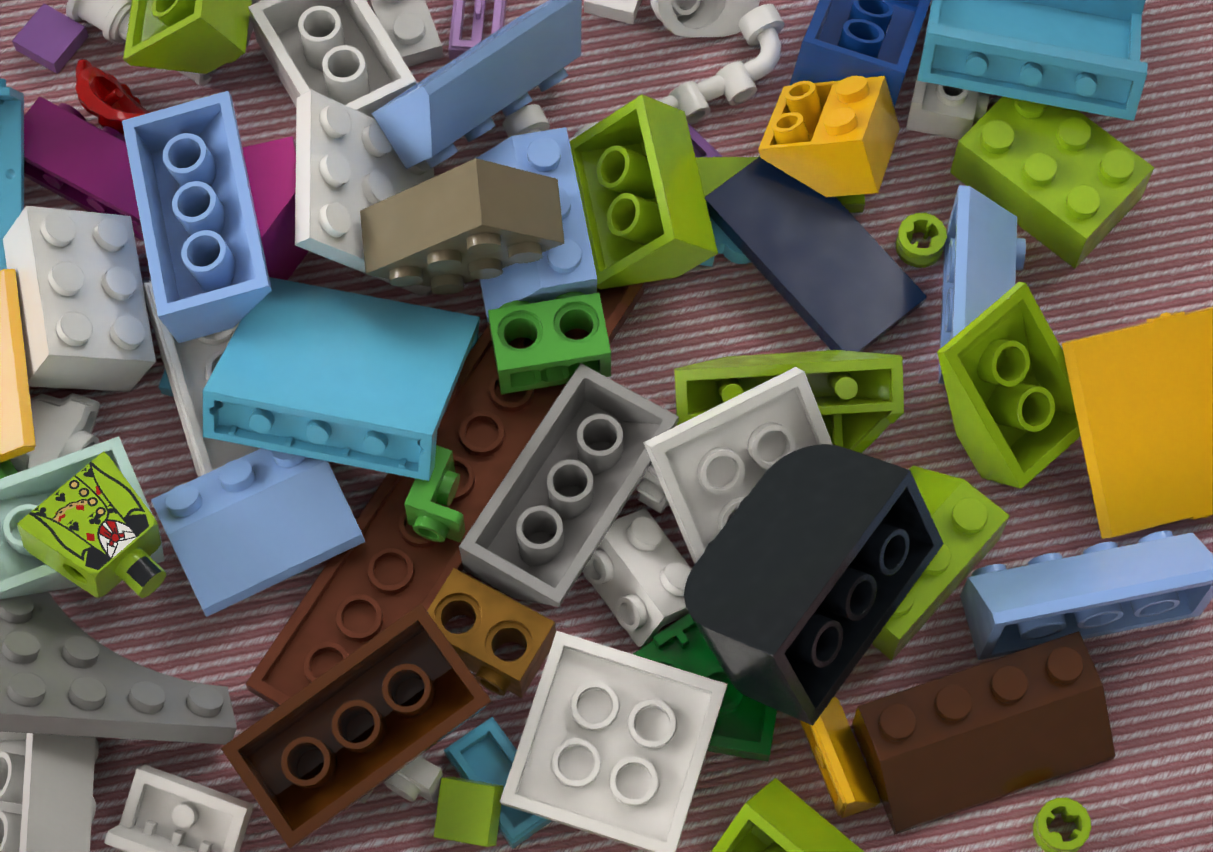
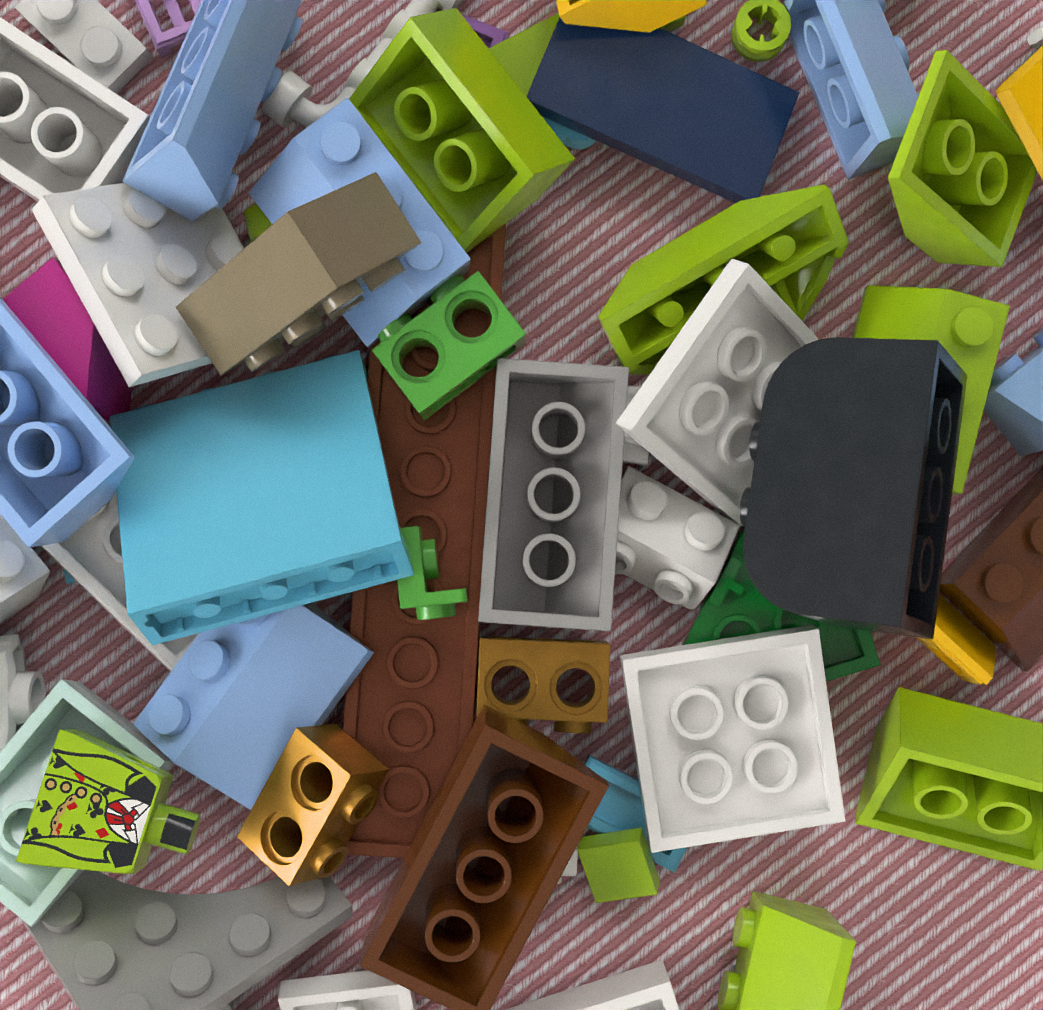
camera: 30 degrees left, 20 degrees up
(252, 628) = (305, 817): none -> pearl gold brick

